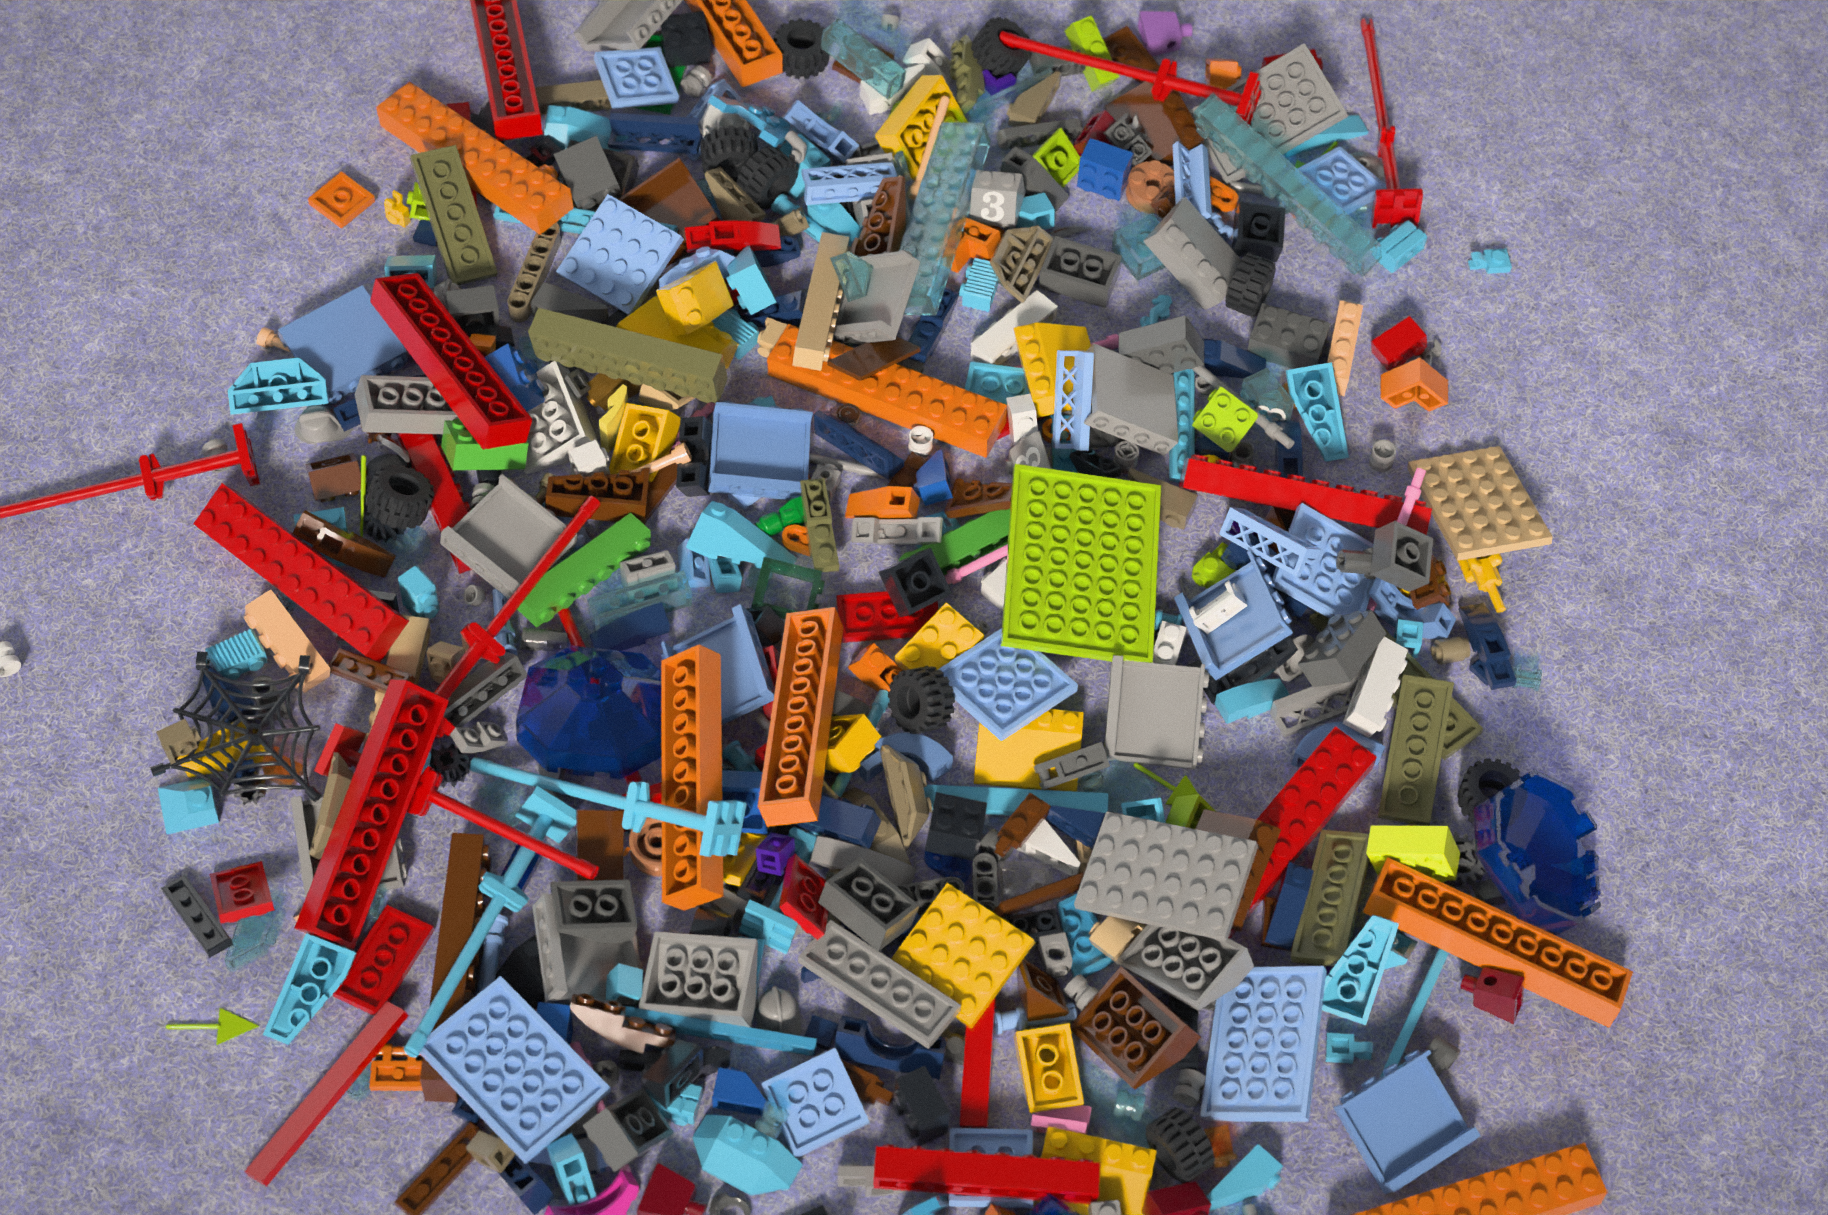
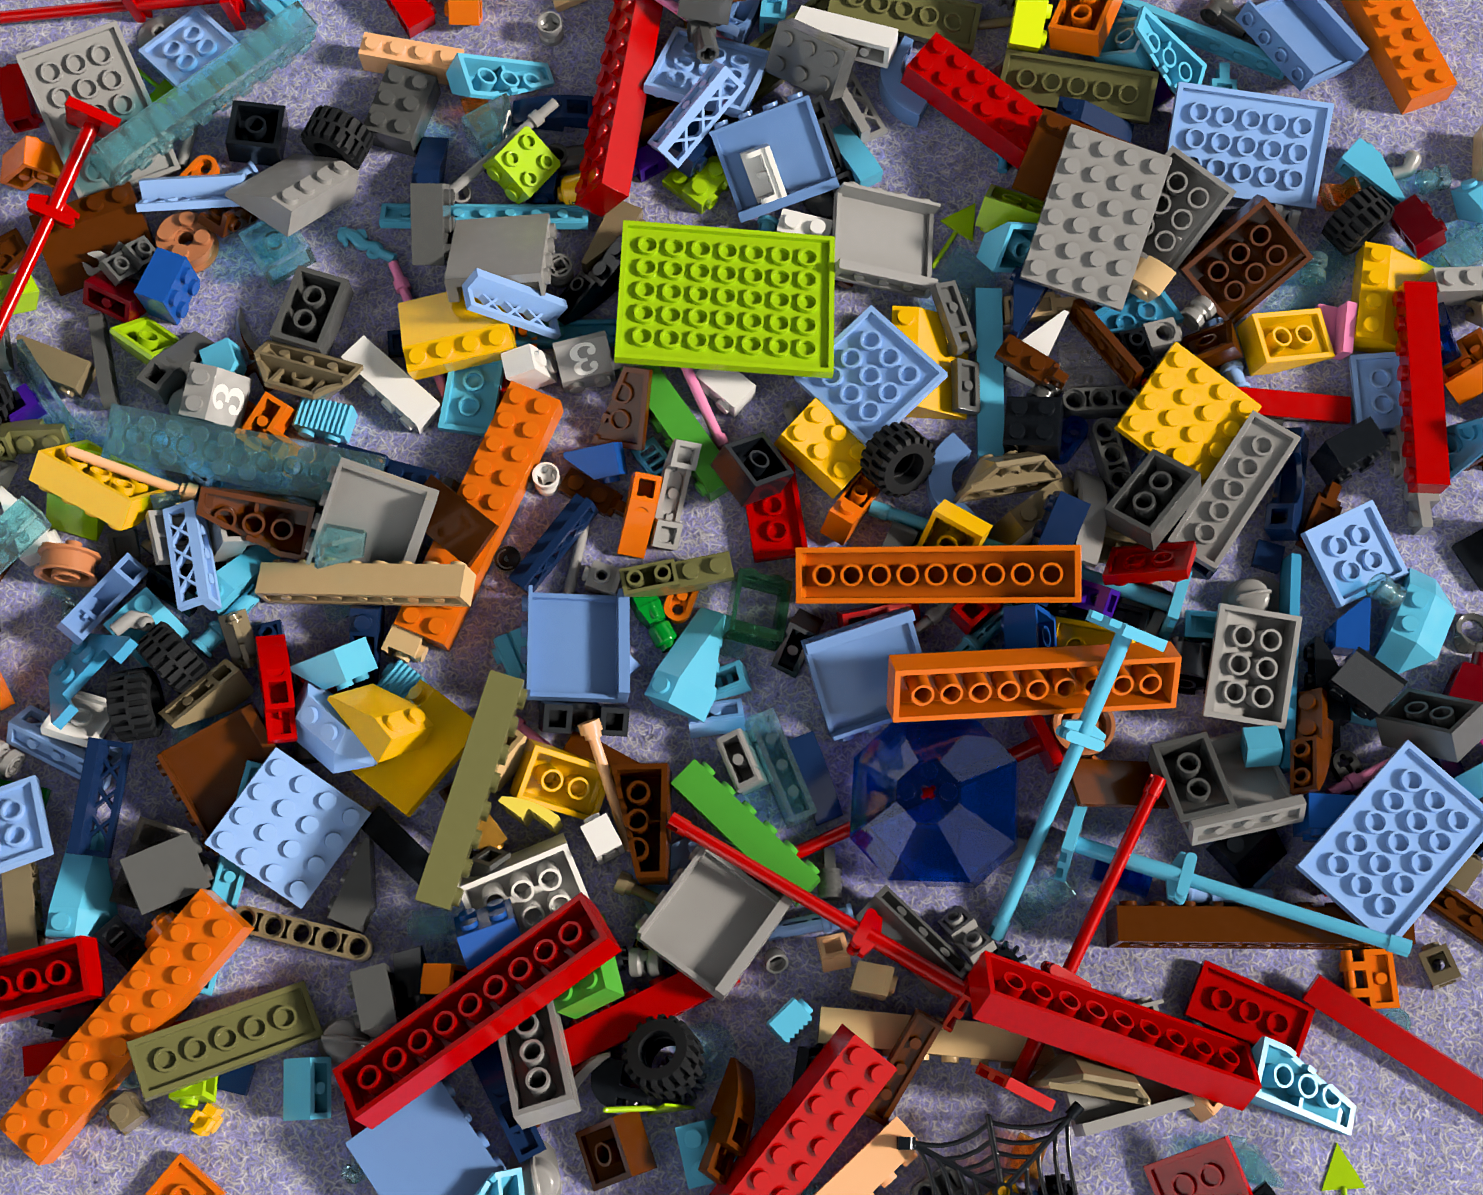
camera: 90 degrees left, 15 degrees up
(402, 162) = (126, 1112): none -> dark tan brick
(403, 1126) = (1439, 978): none -> dark tan brick
(854, 110) = (67, 564): none -> nougat wheel
(1002, 775) = (965, 386): none -> dark grey plate

